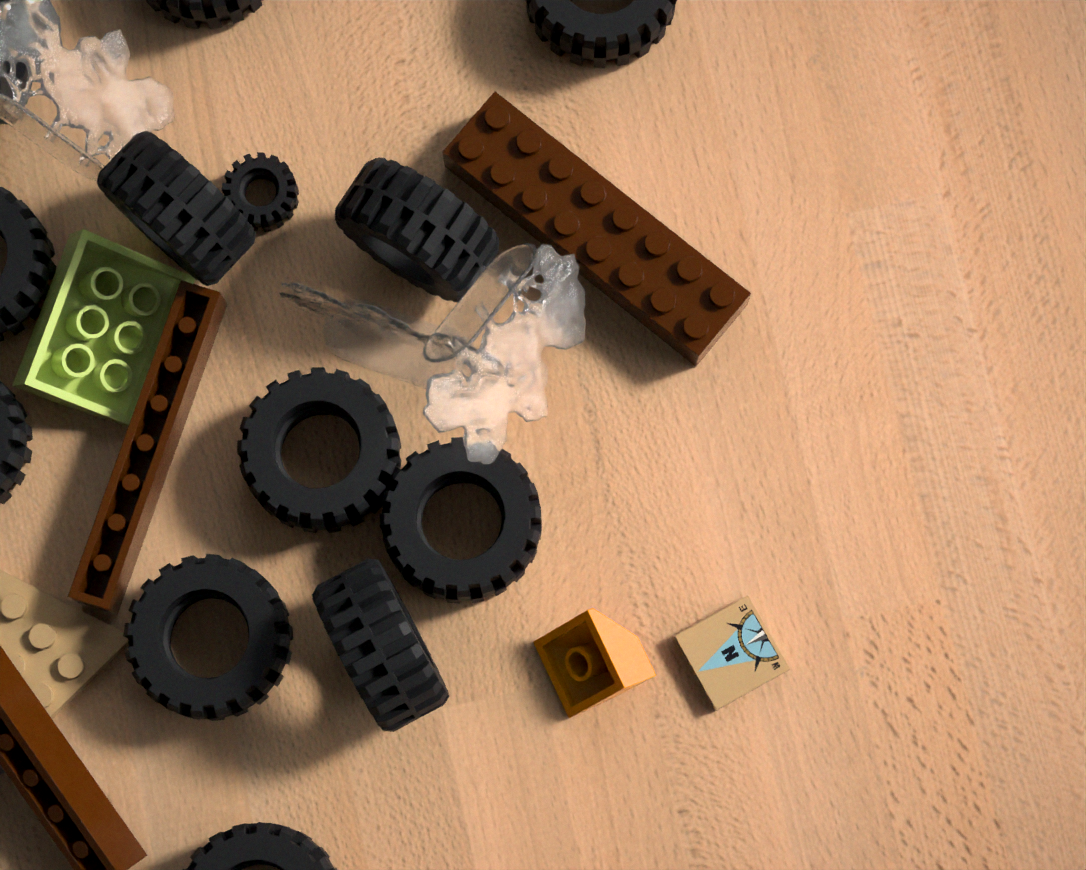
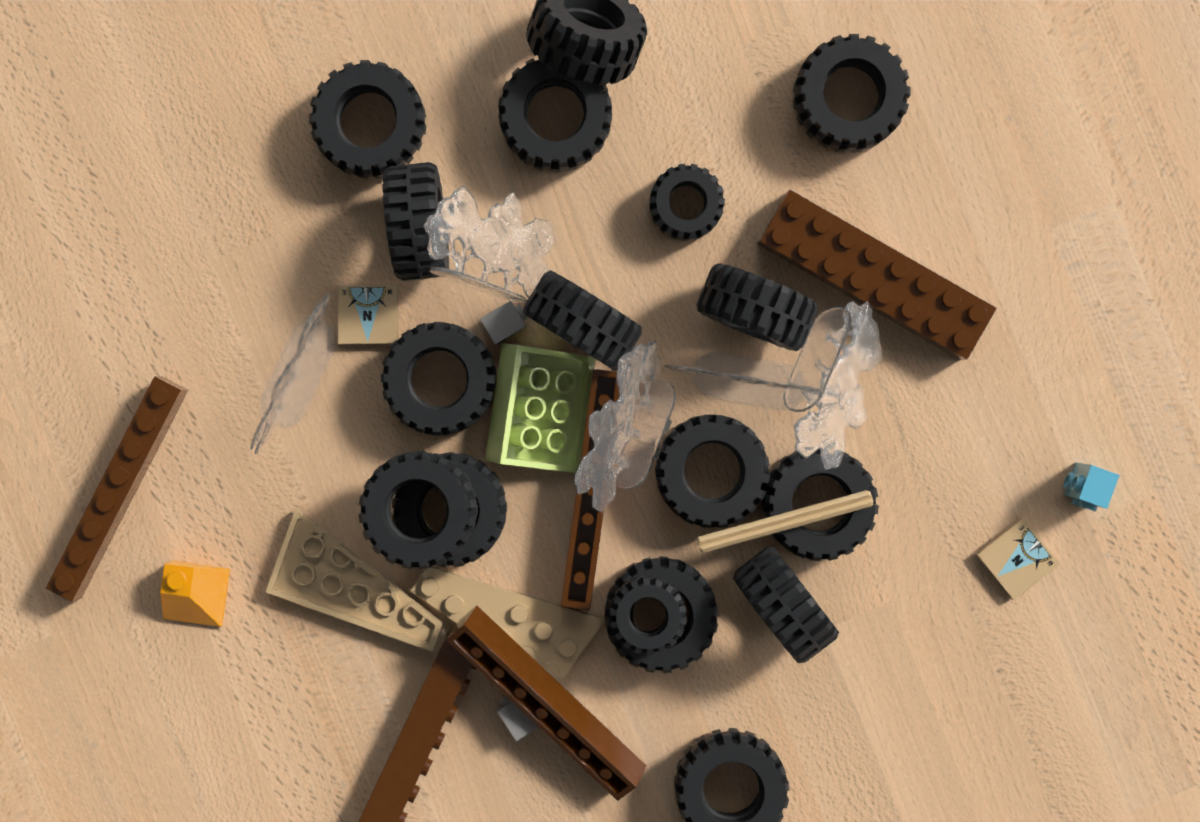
camera: 10 degrees left, 10 degrees up
(79, 207) = (504, 322): none -> light grey brick
(149, 598) = (653, 640): none -> black tyre
(188, 366) = (627, 430): none -> clear plant
(262, 168) = (636, 270): black tyre -> none
(348, 60) = (686, 176): none -> black tyre
(400, 526) = (785, 521): none -> tan axle
(592, 661) = (925, 584): light orange slope -> none
(845, 560) = (1090, 486): none -> medium azure brick

